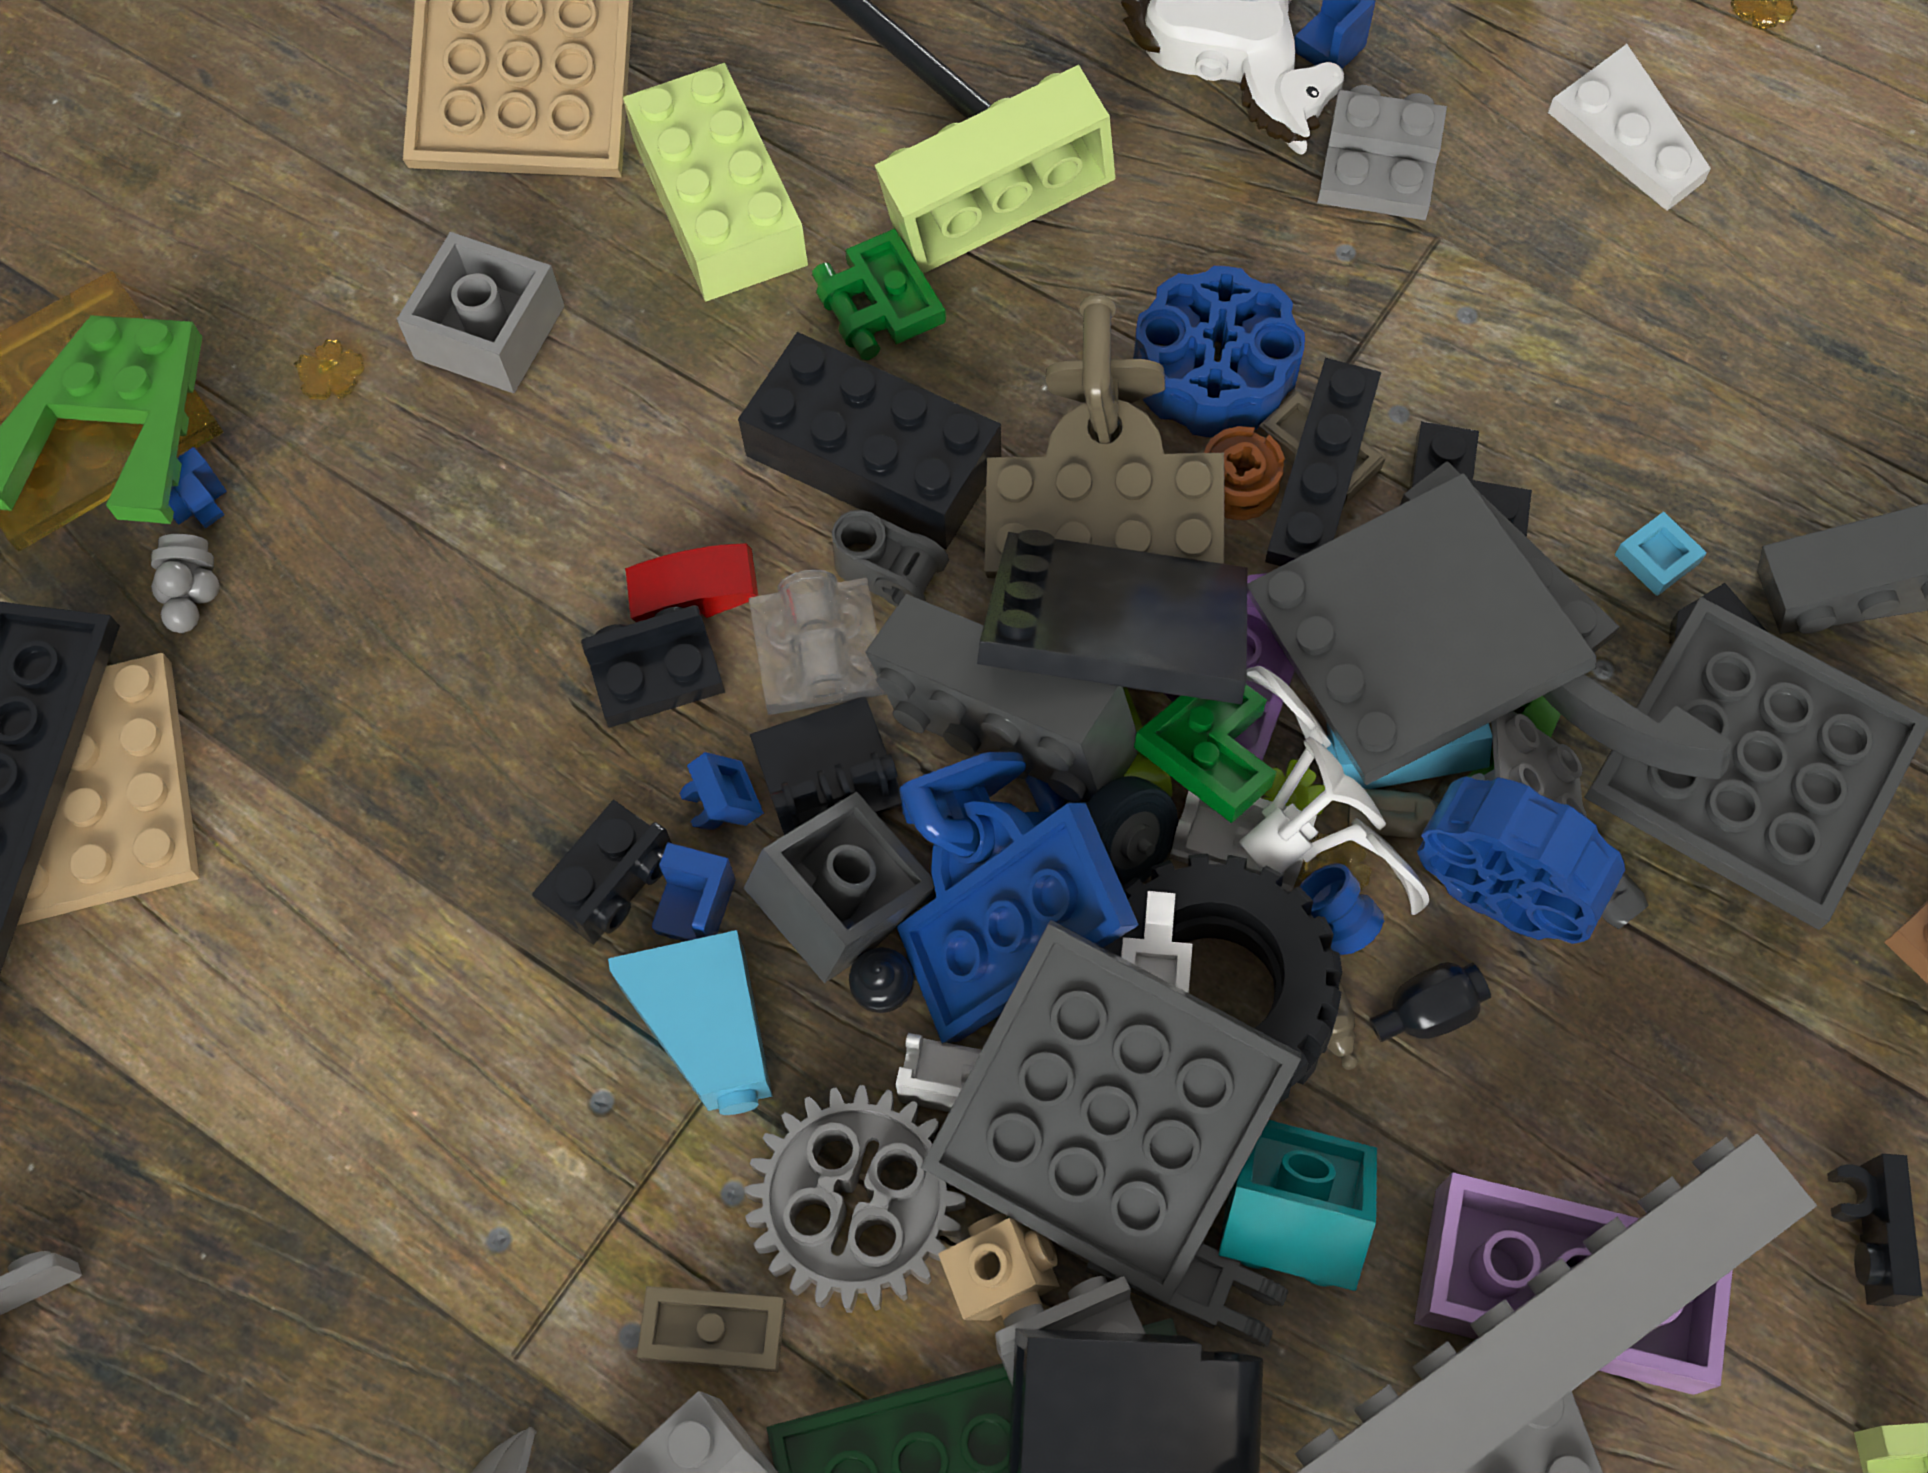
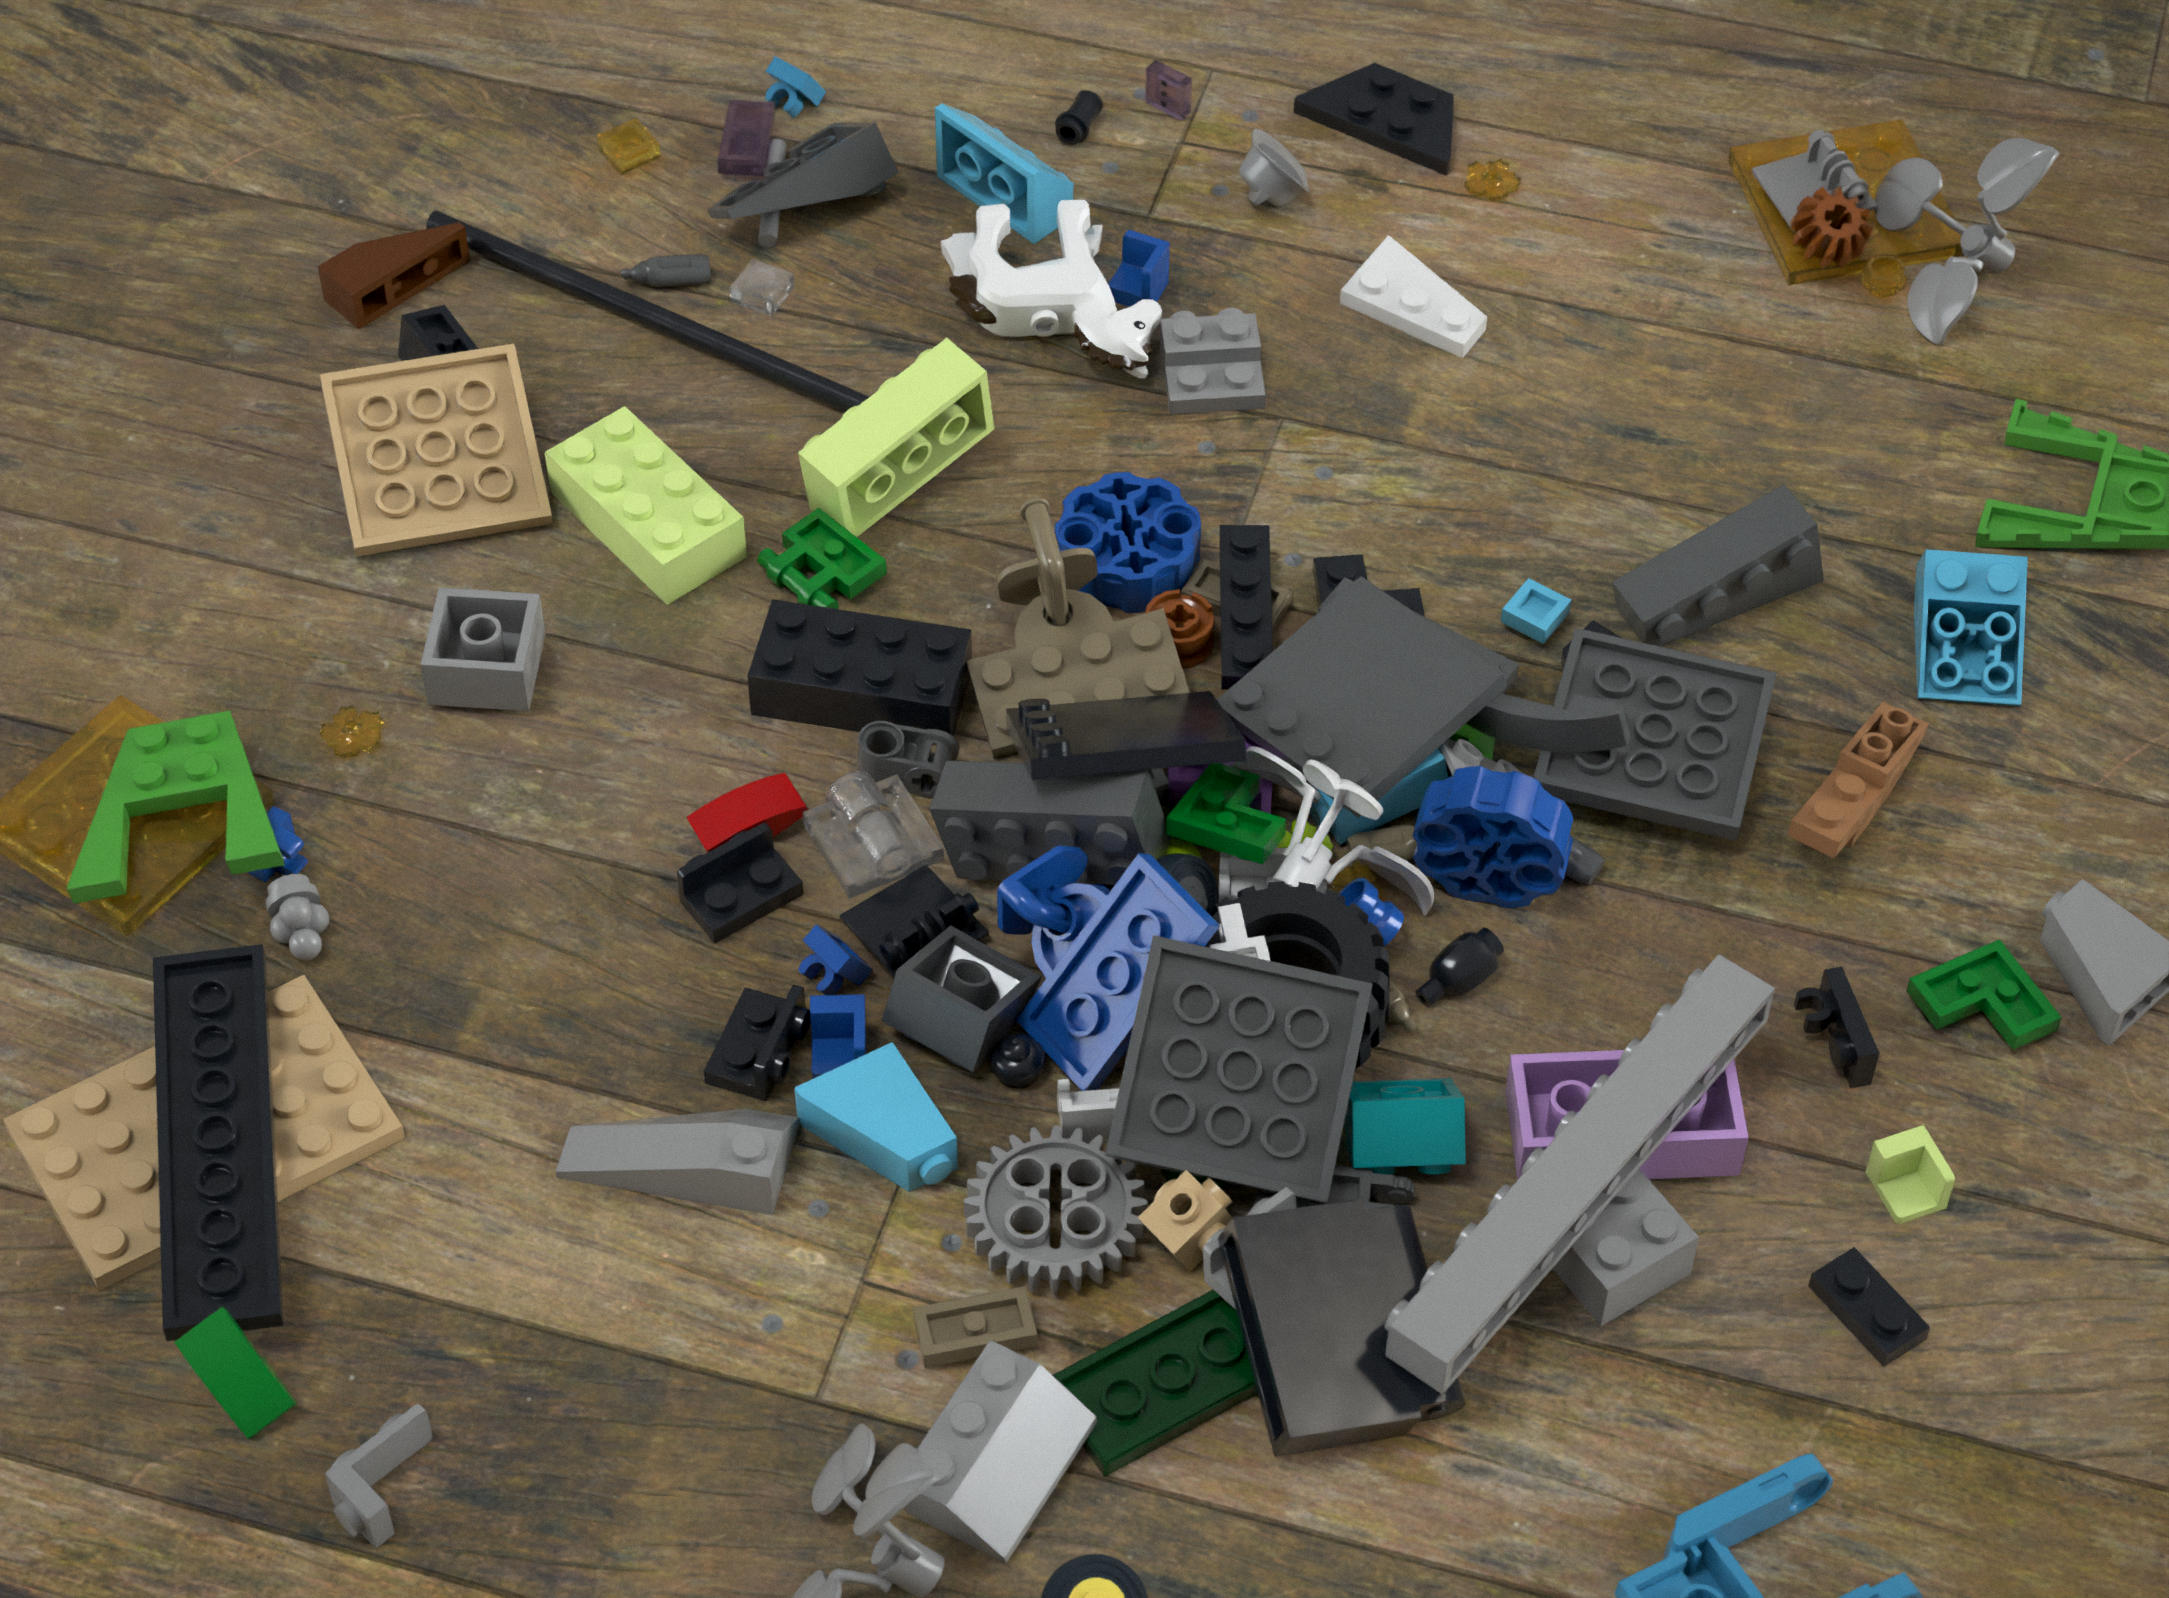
camera: 20 degrees left, 15 degrees down
(493, 997) = (700, 1157): none -> light grey wedge

